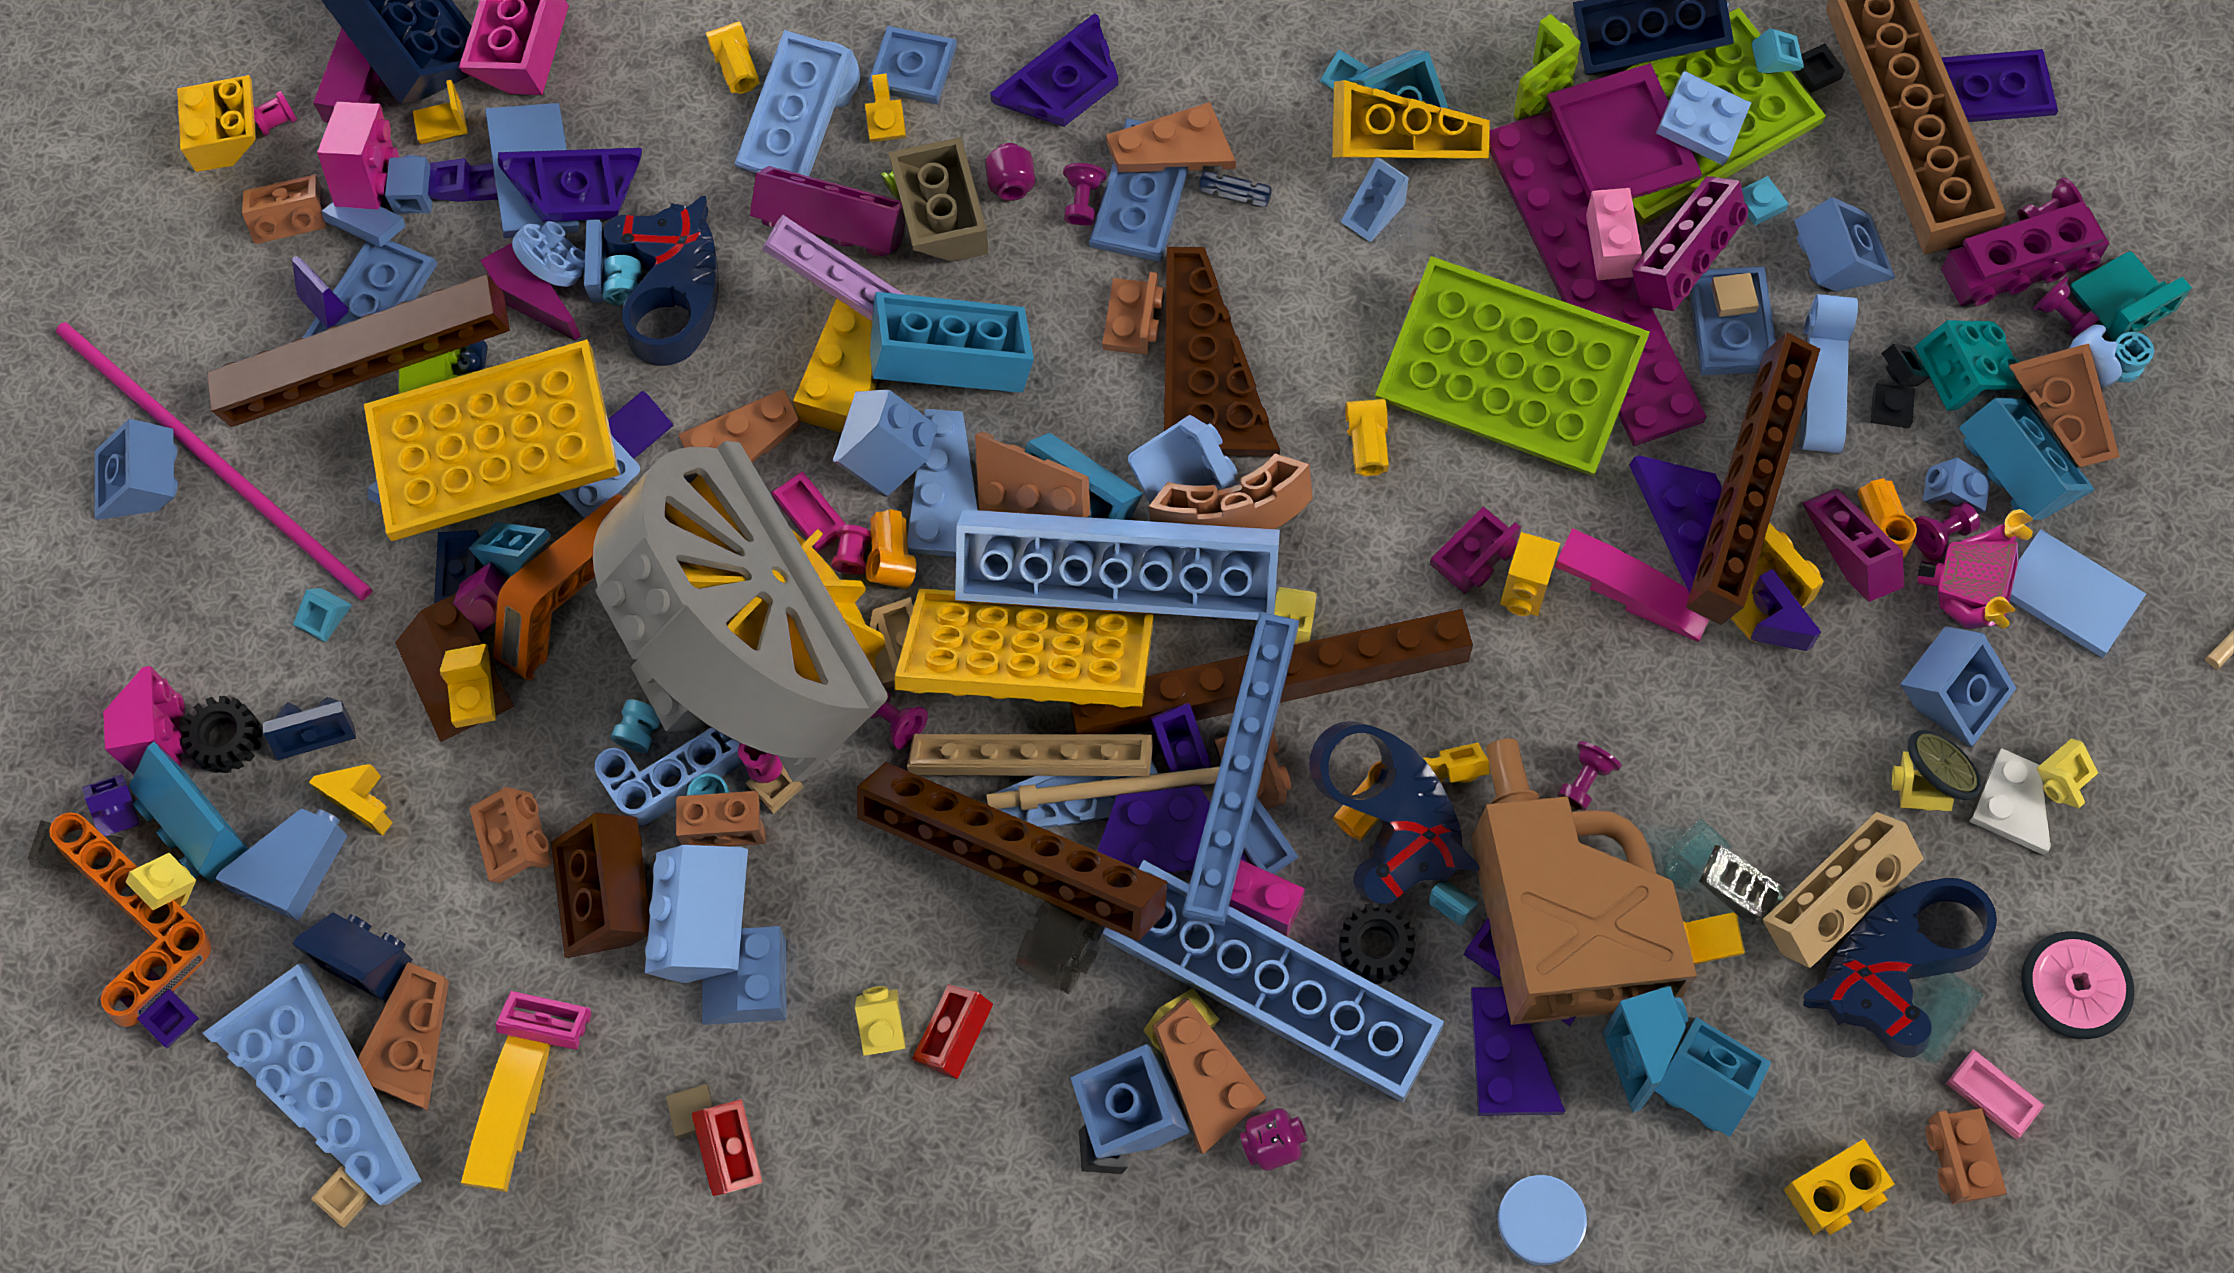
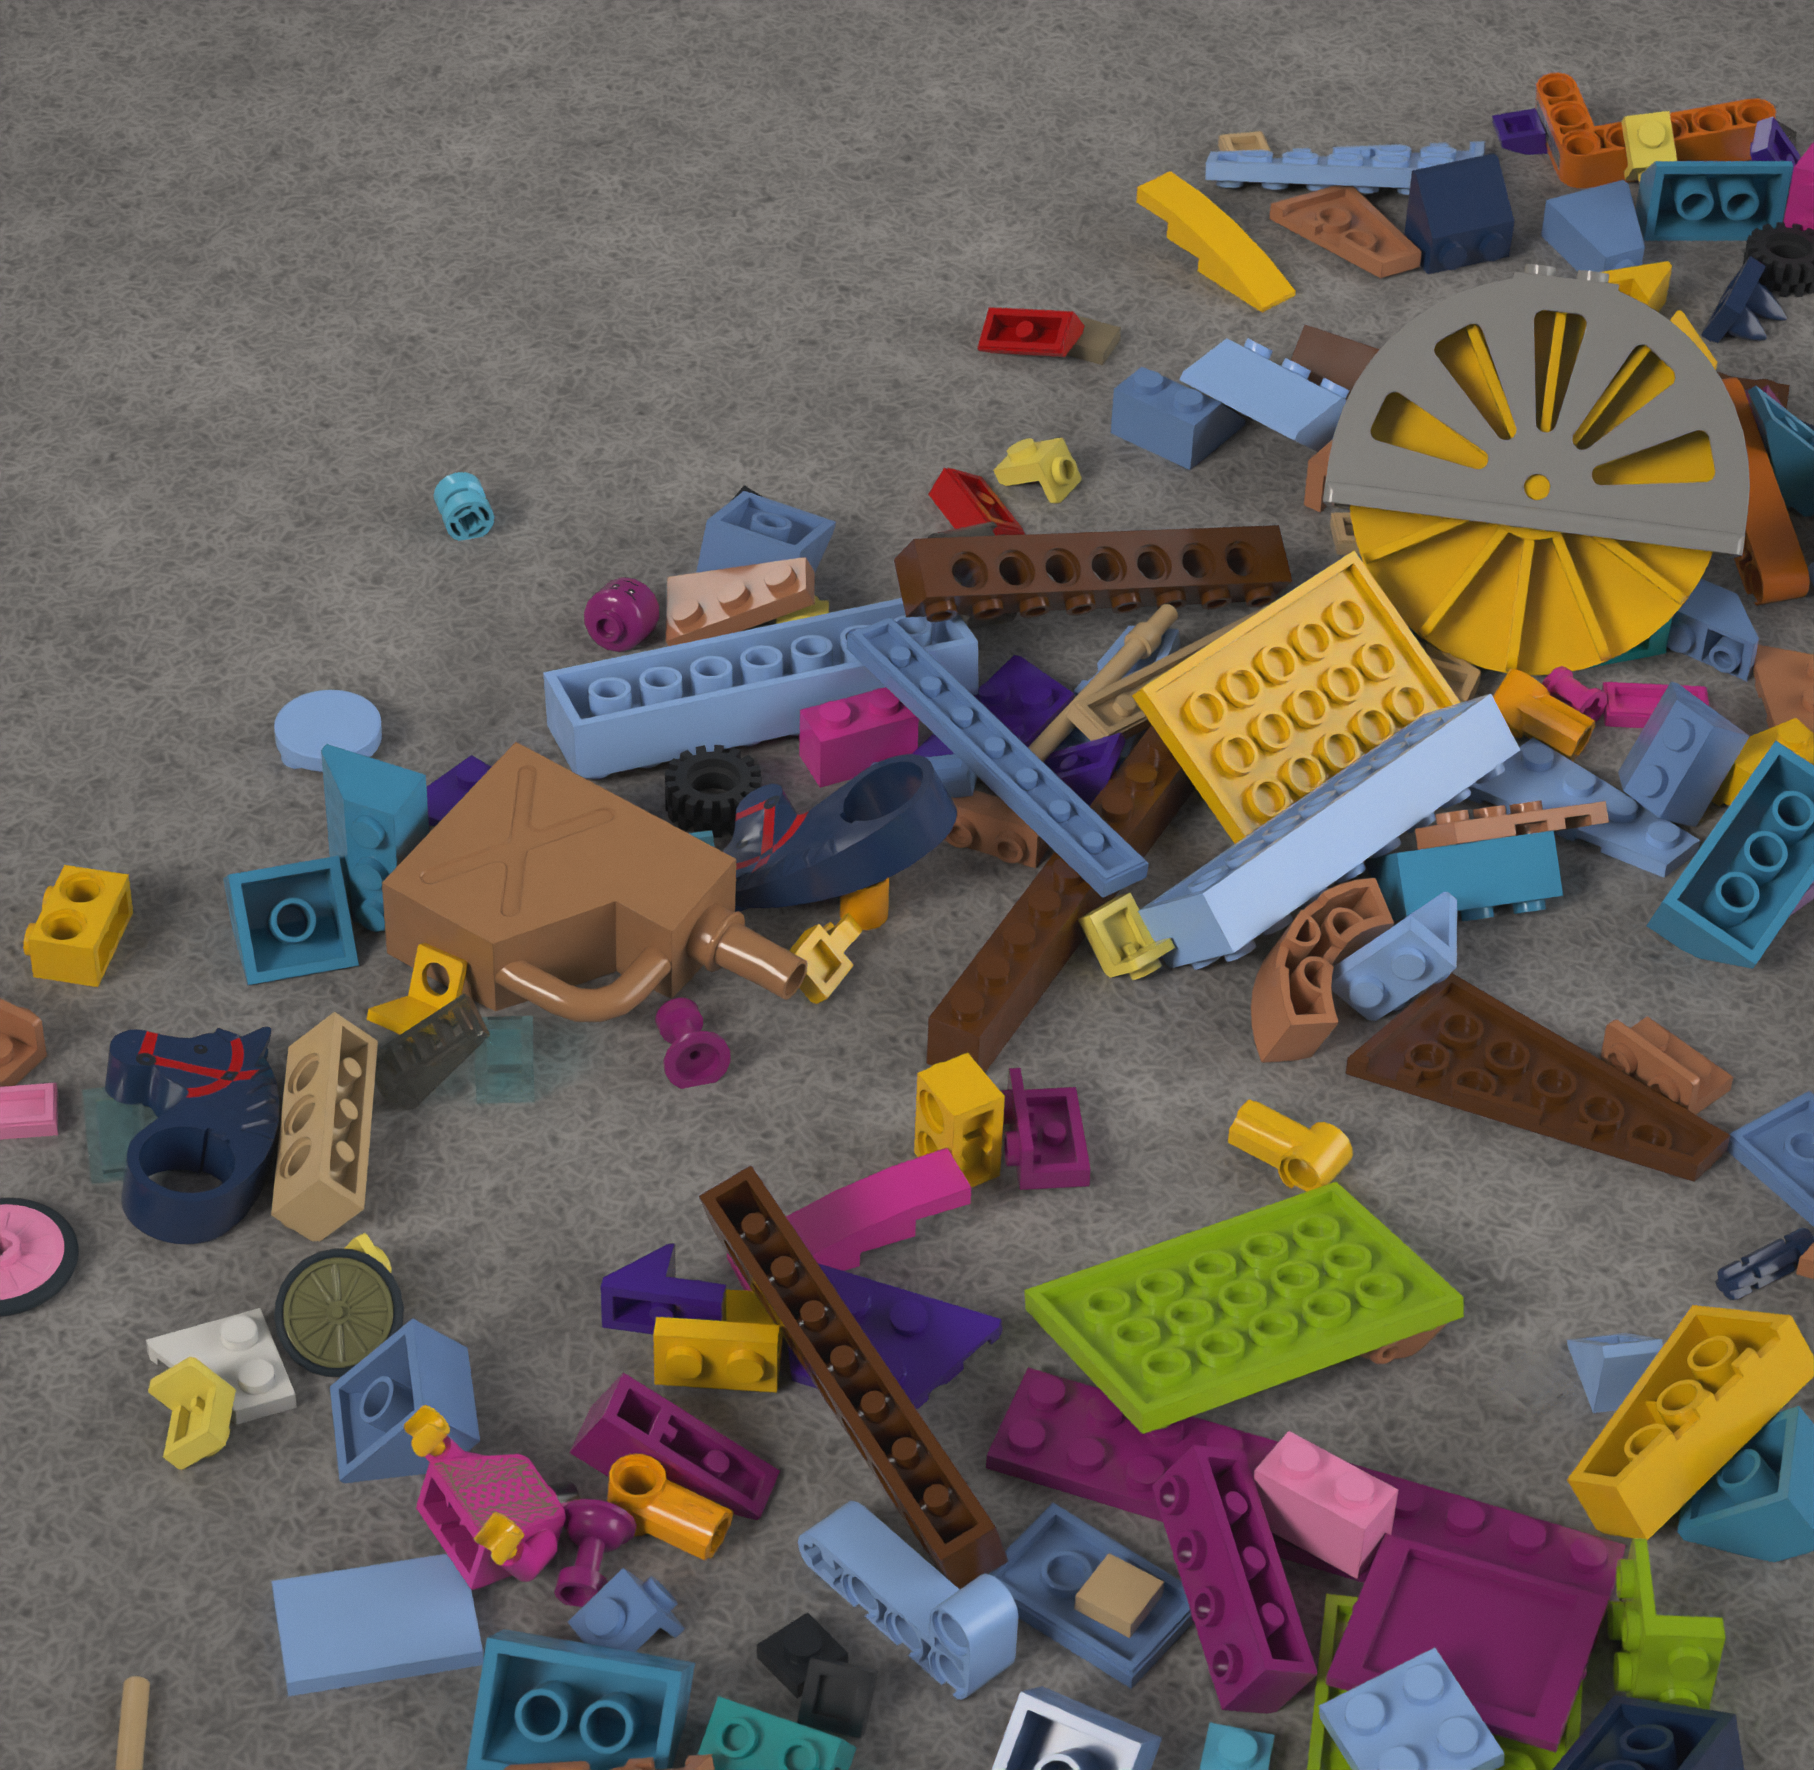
camera: 125 degrees right, 25 degrees down
(541, 1026) = (1251, 316): dark pink tile -> none

